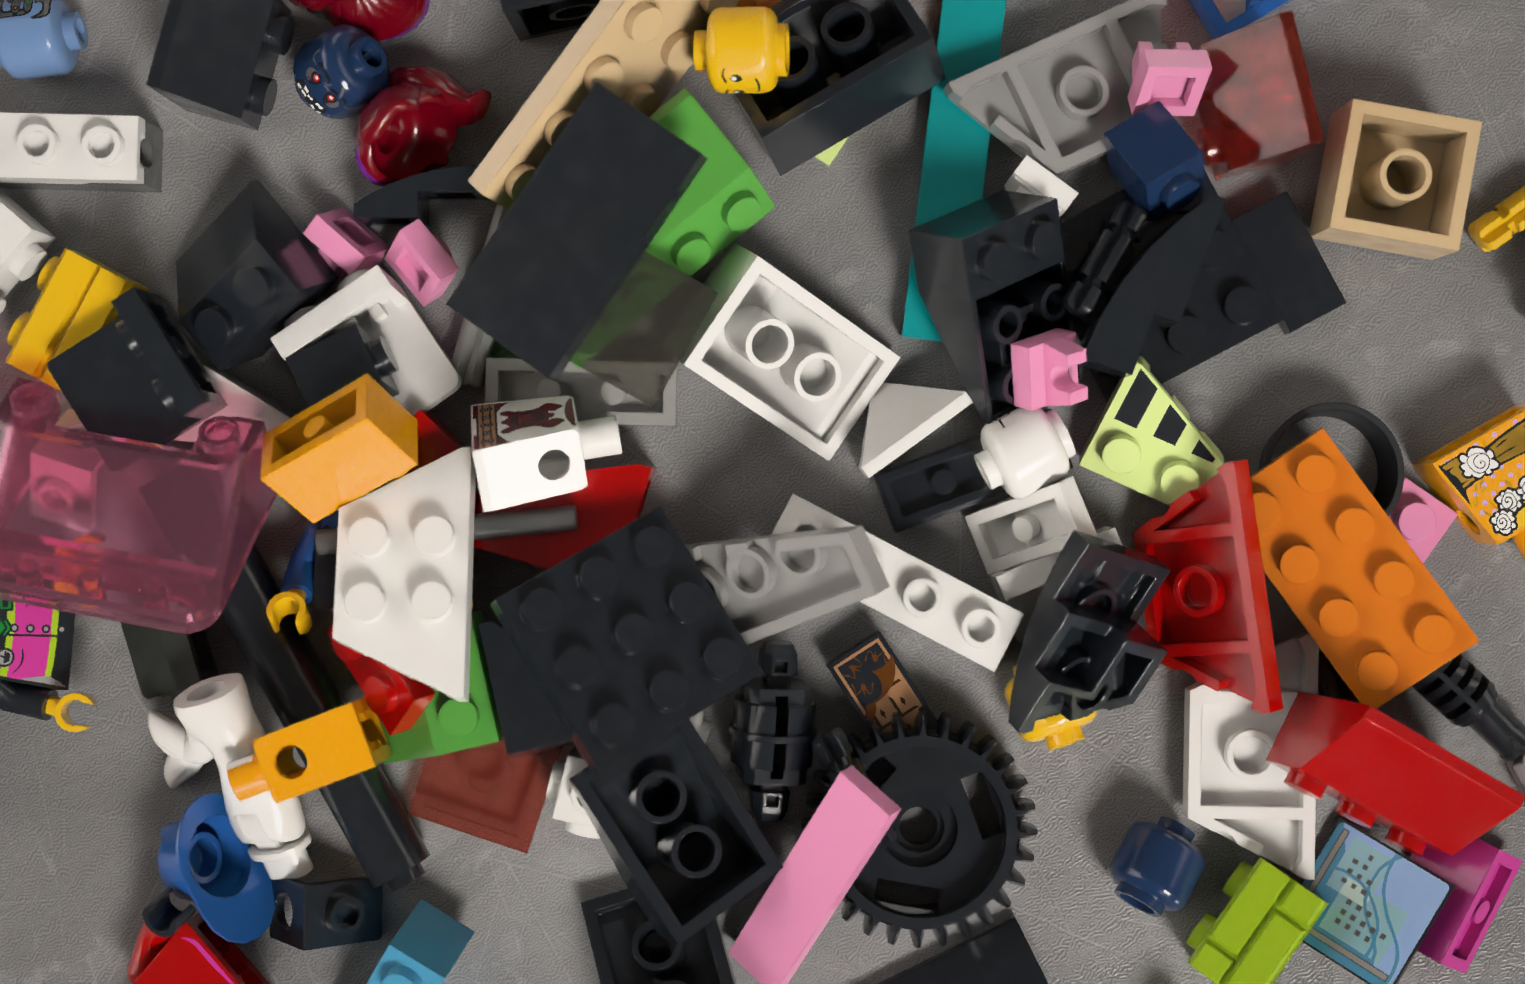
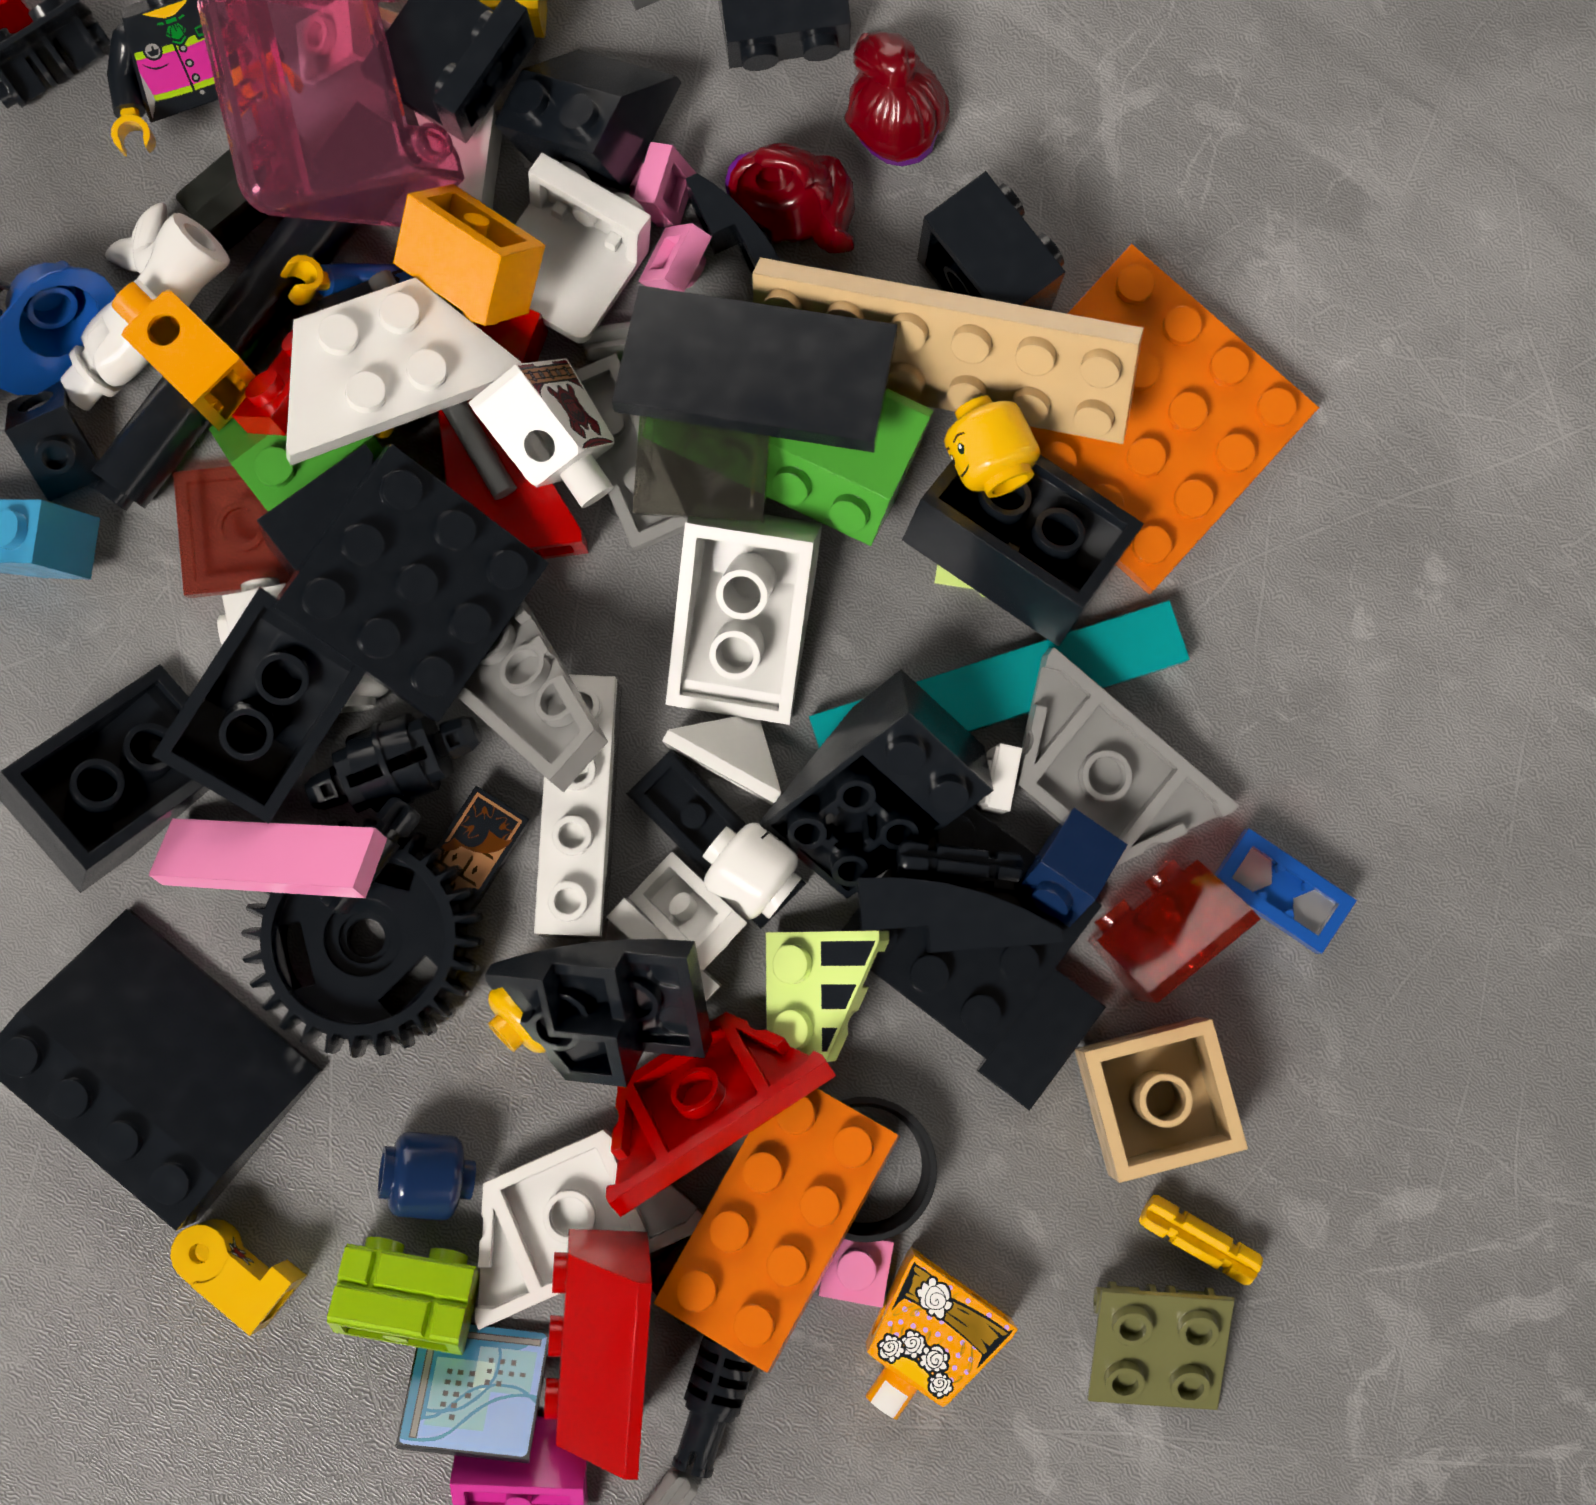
camera: 70 degrees right, 5 degrees down
(340, 71) = (811, 111): dark blue head -> none
(341, 360) = (552, 222): black brick -> none
(1047, 370) = (833, 854): bright pink tile -> none
(1168, 76) = (1153, 845): bright pink tile -> none

